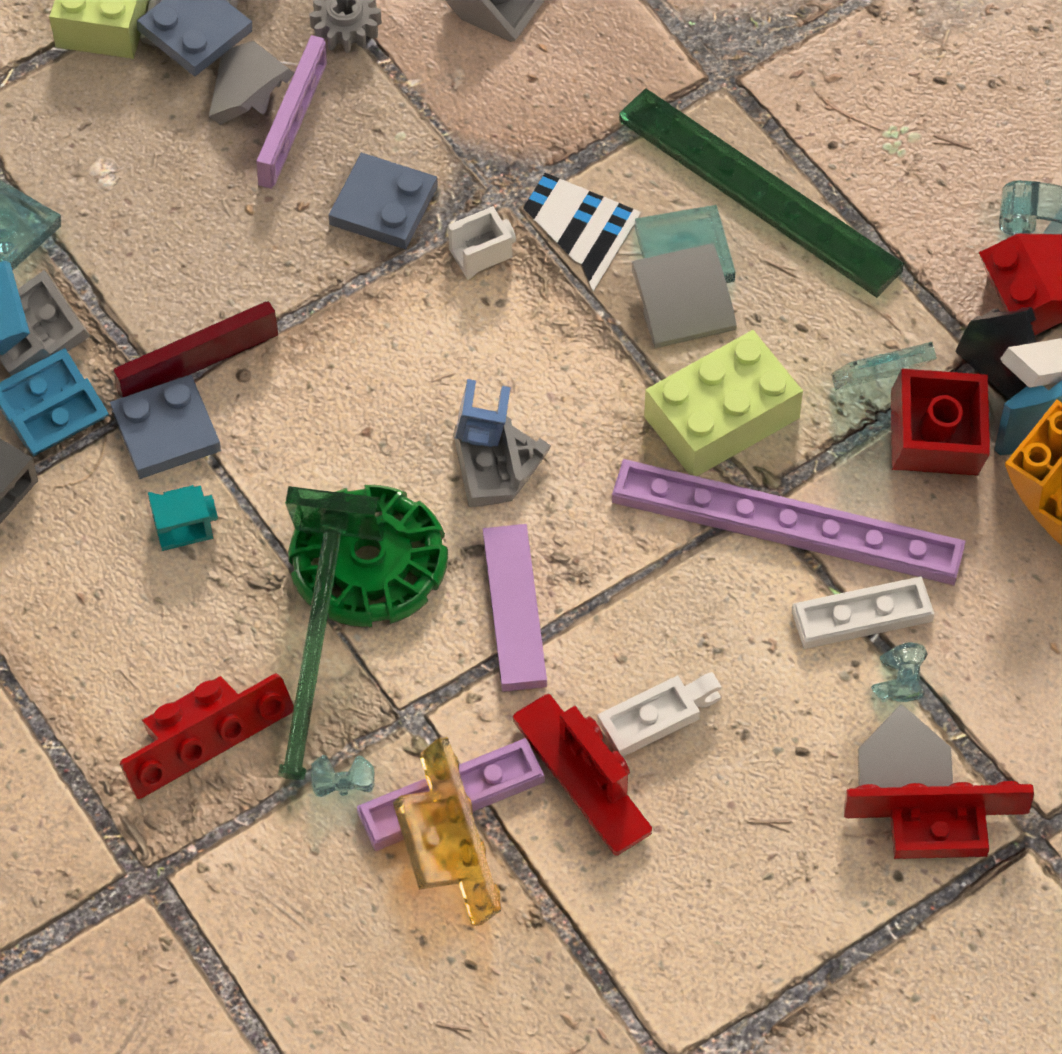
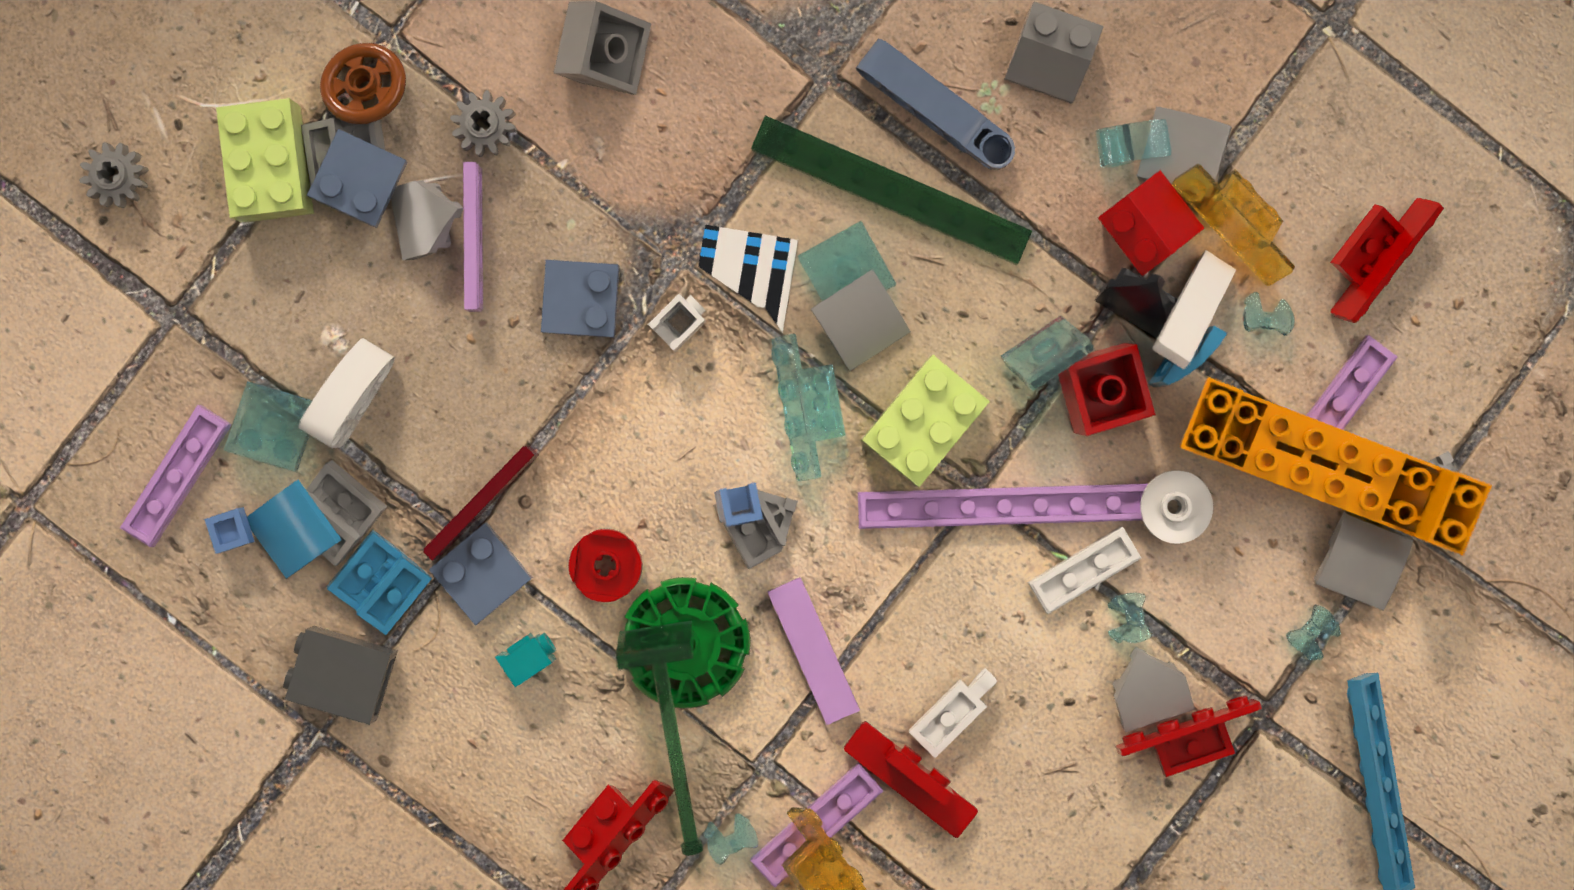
camera: 20 degrees left, 30 degrees up
(94, 210) = (346, 394): none -> white beam
(299, 433) = (592, 549): none -> red plate
(598, 358) = (809, 405): none -> clear light blue bracket
(833, 124) = (936, 105): none -> sand blue piece
(976, 106) = (1053, 52): none -> light grey slope
(992, 552) = (1193, 511): none -> white dish

